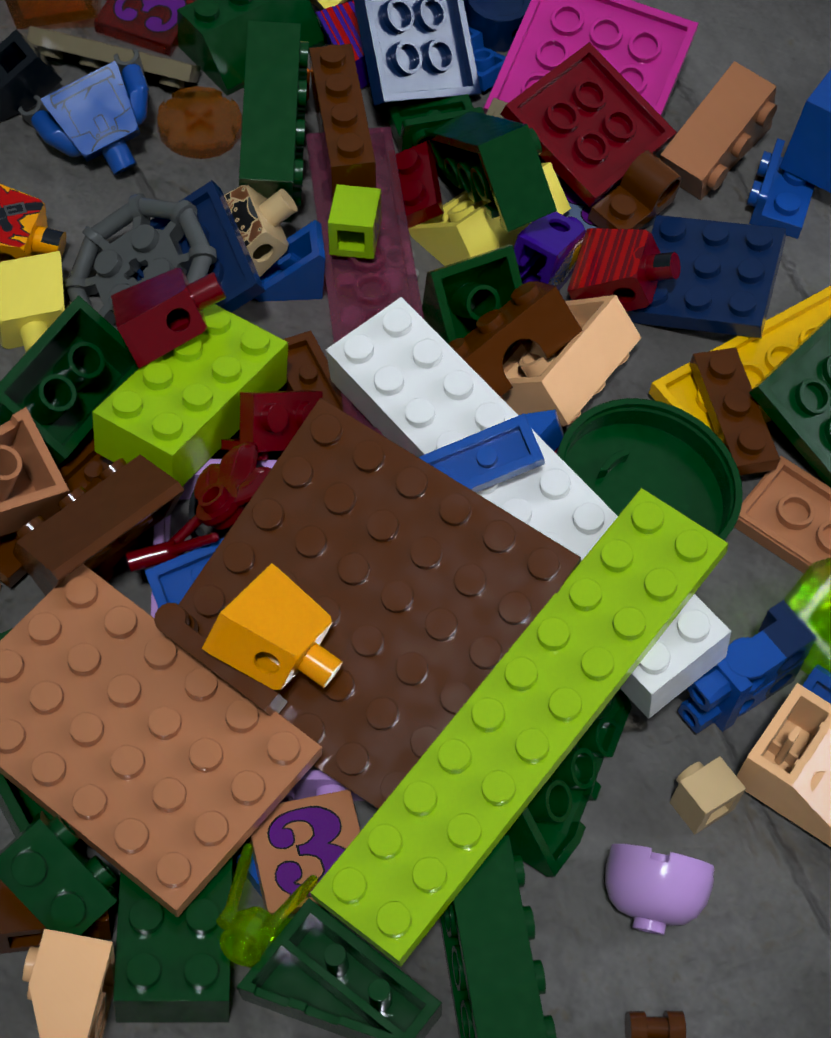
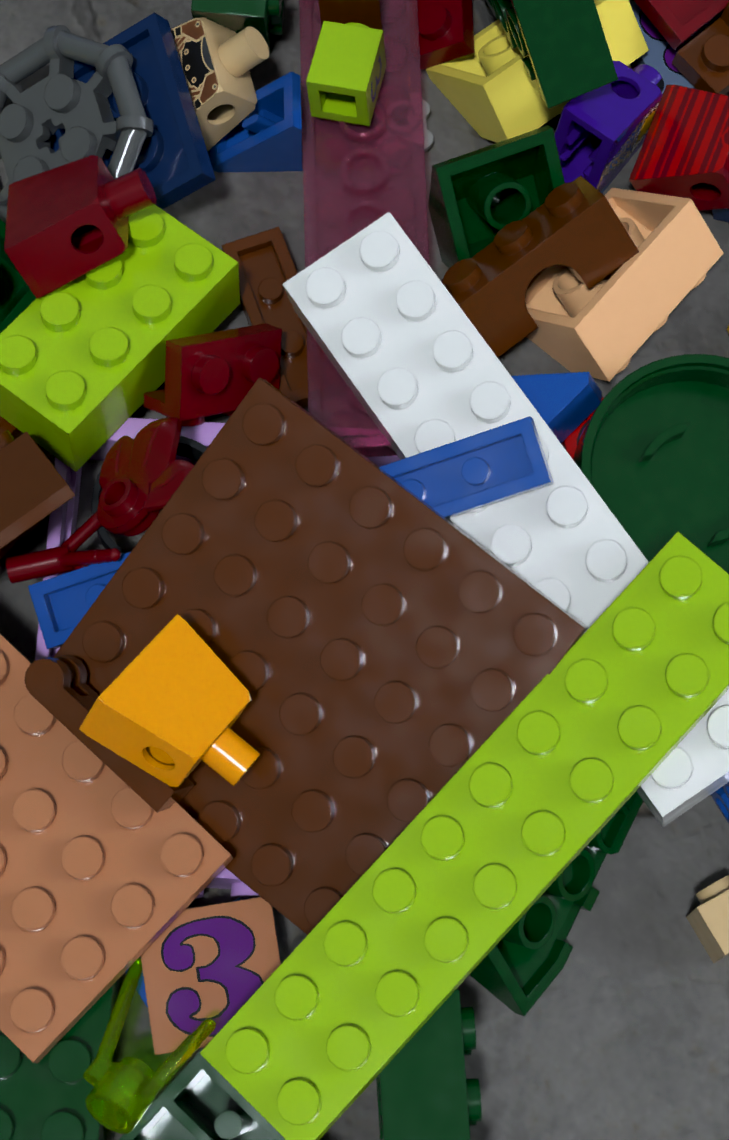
camera: 10 degrees right, 15 degrees up
(657, 886) = (651, 1046): lavender cylinder -> none

